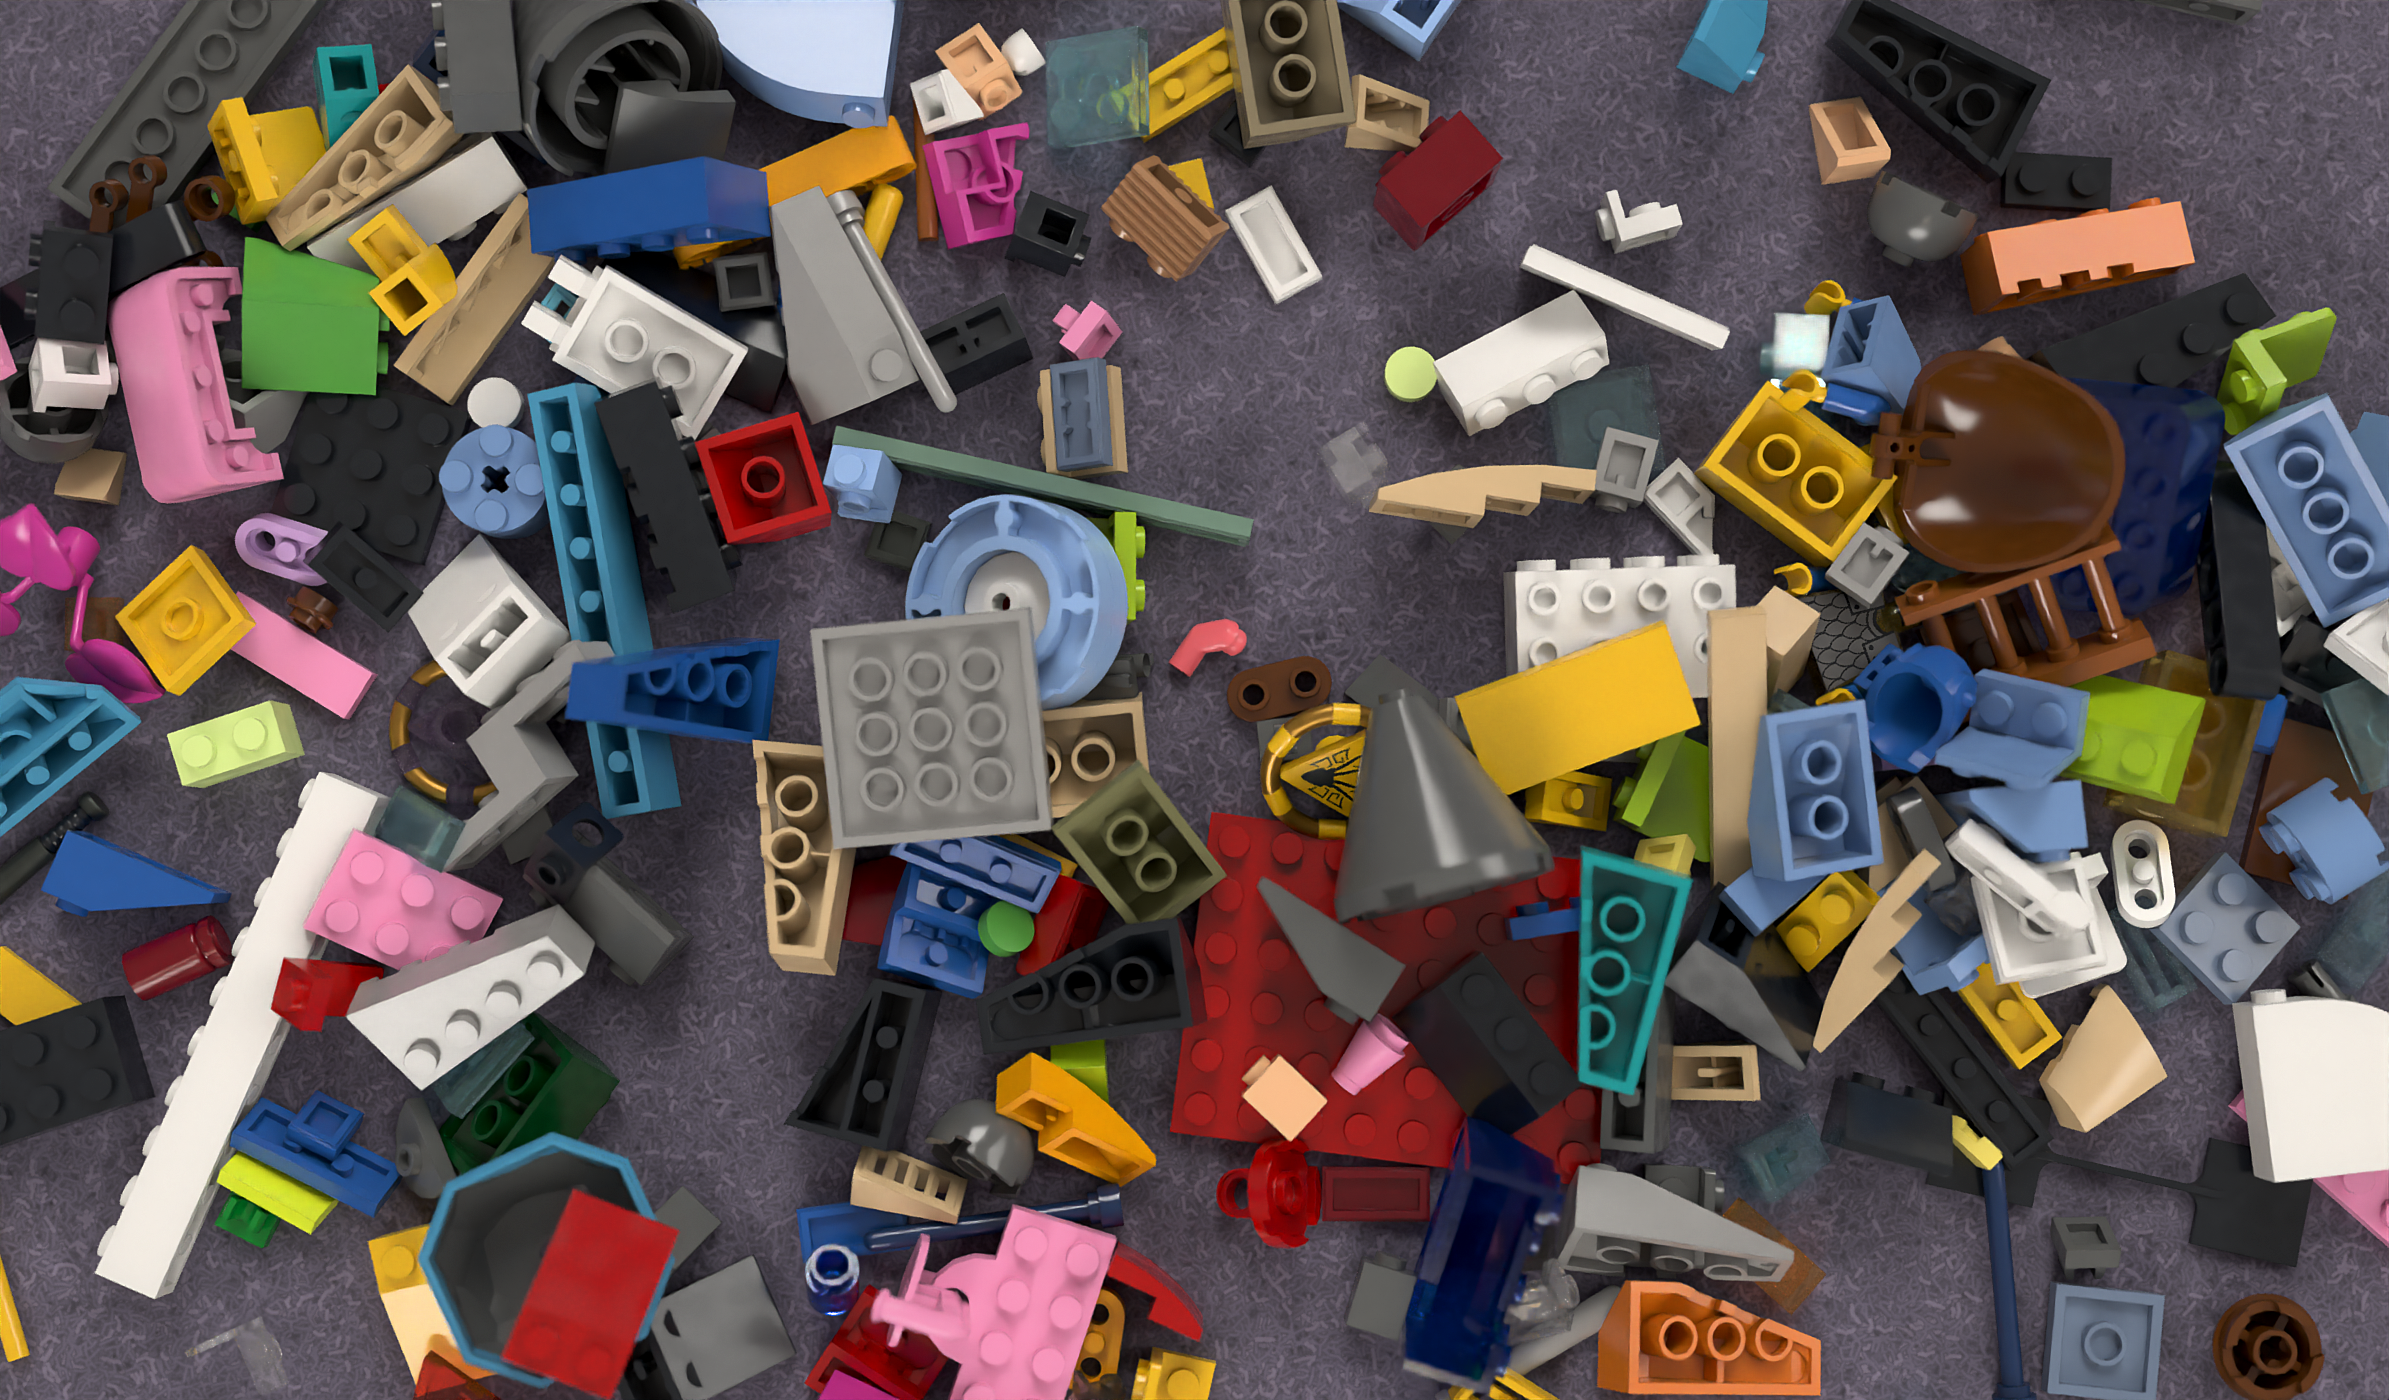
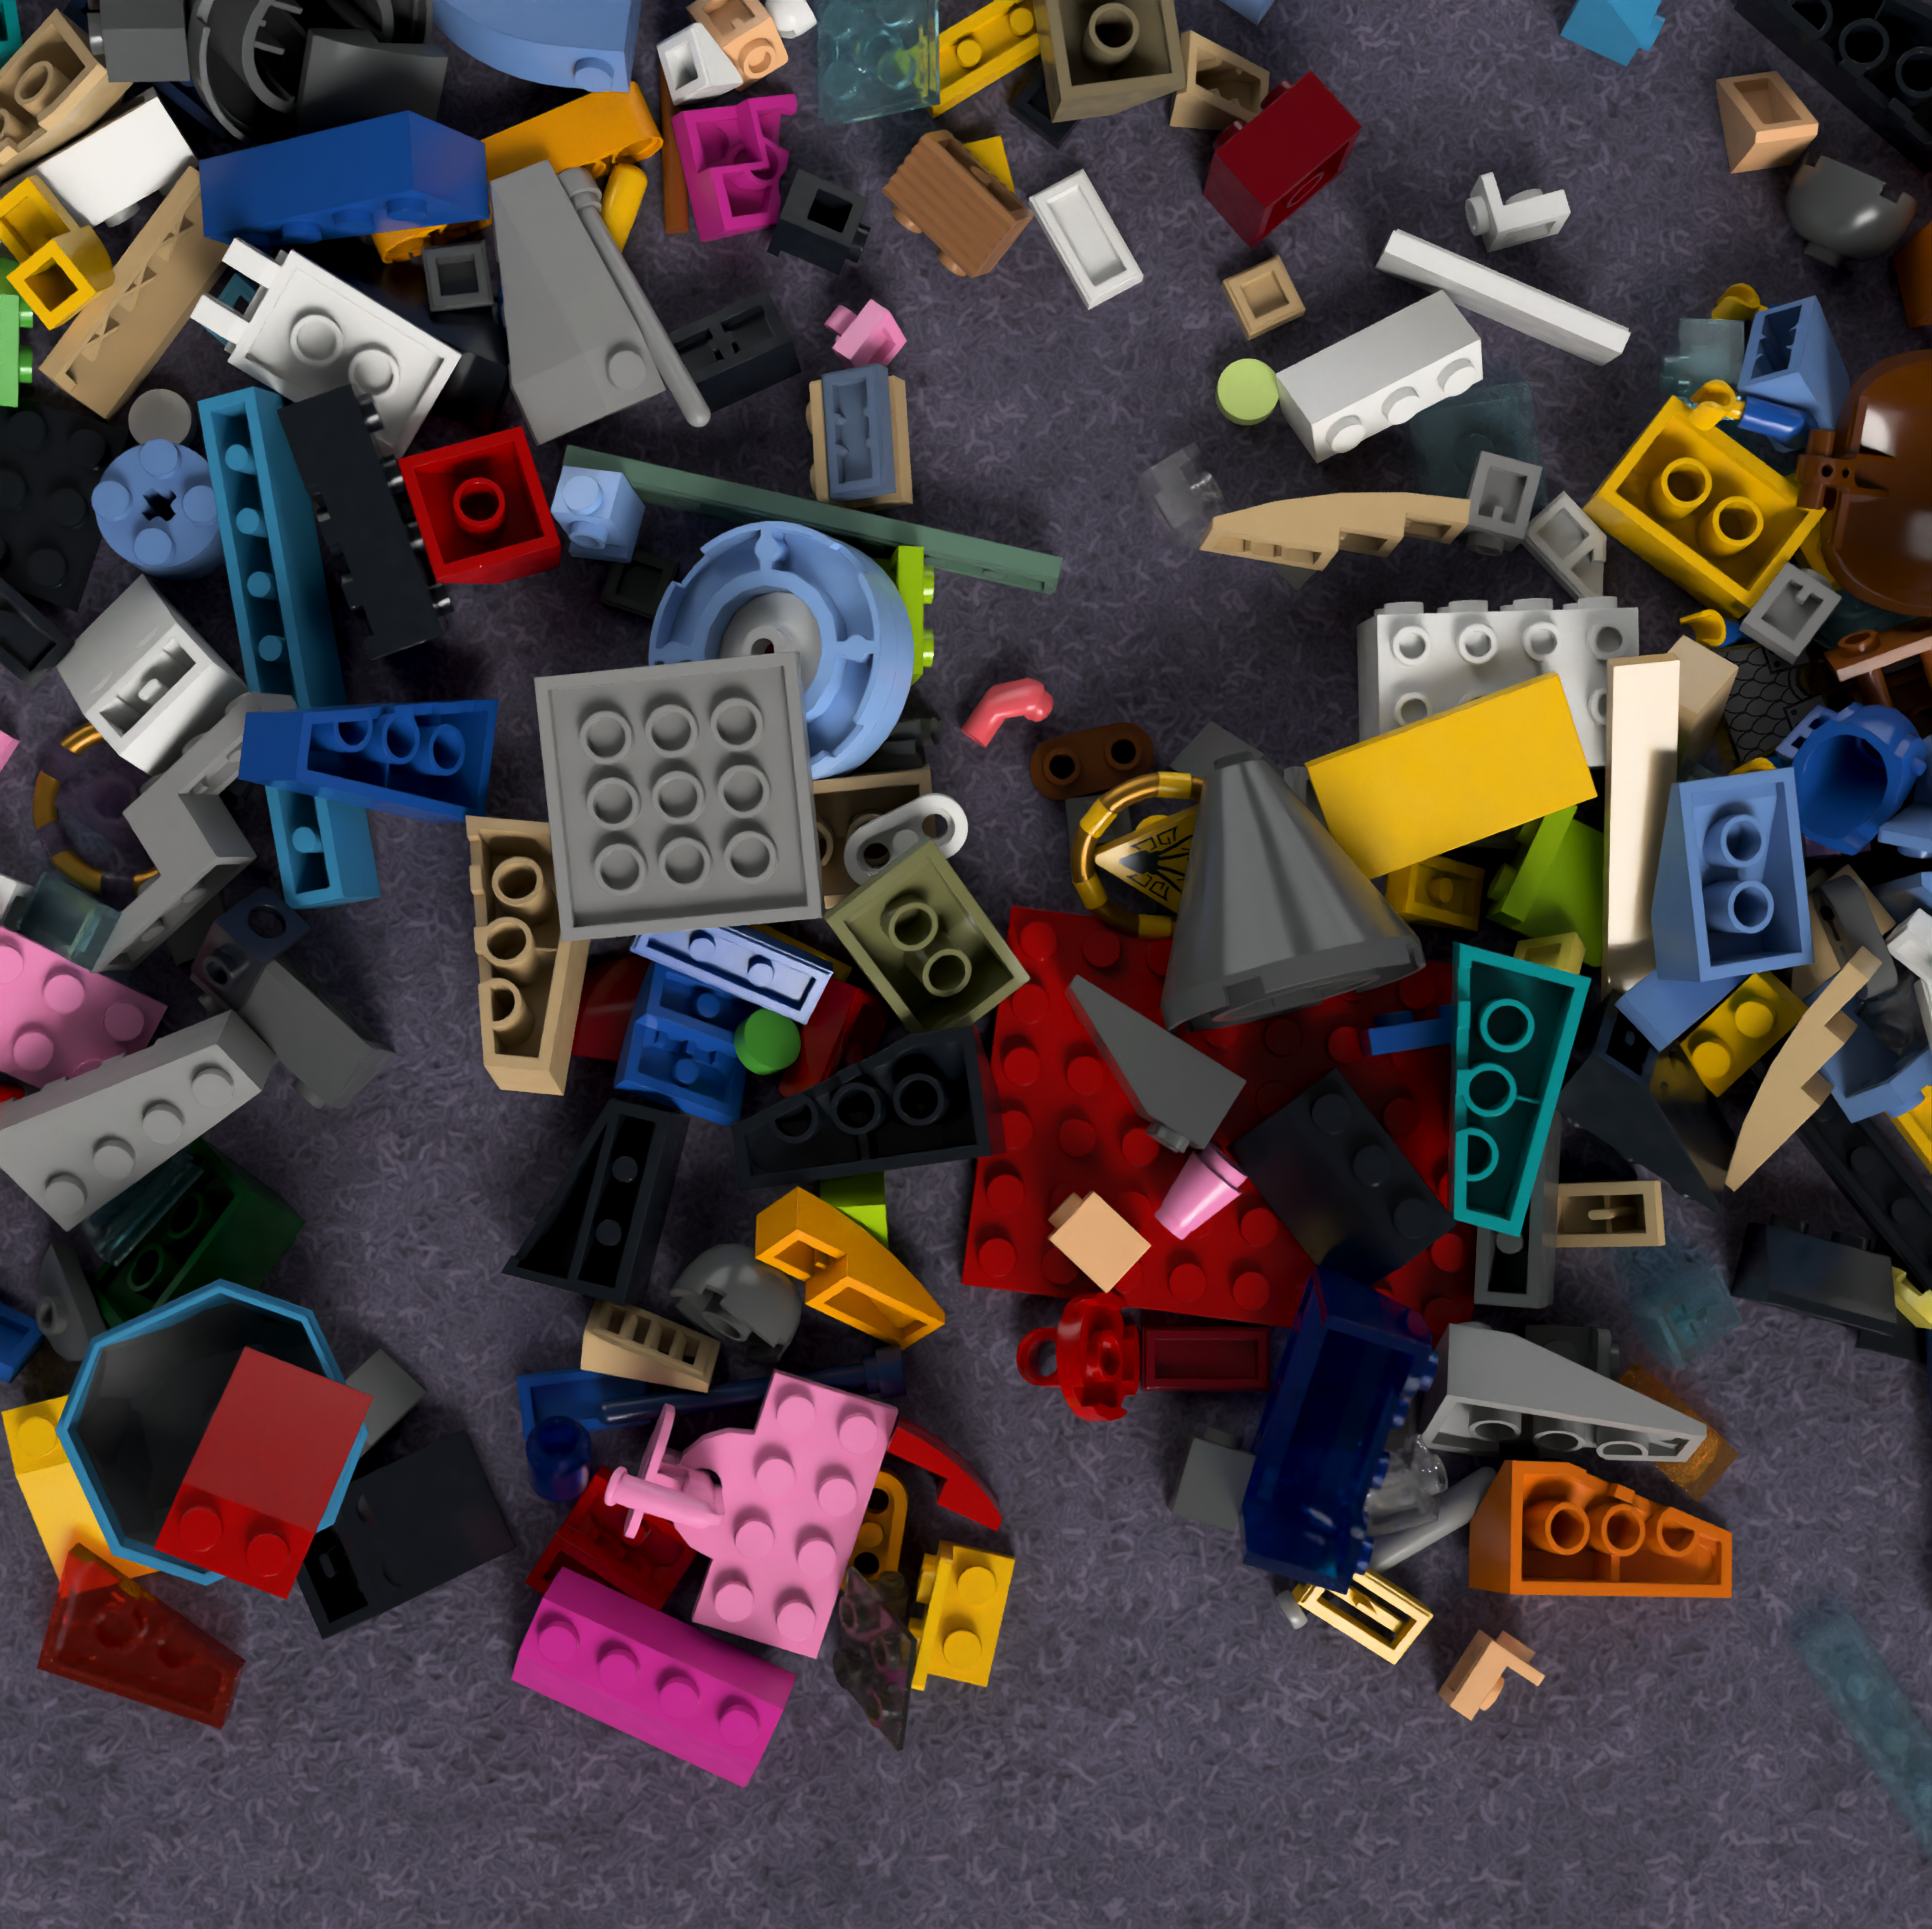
camera: 10 degrees left, 0 degrees up
(1119, 753) = (902, 830): none -> white plate
(1424, 293) = (1263, 297): none -> tan tile

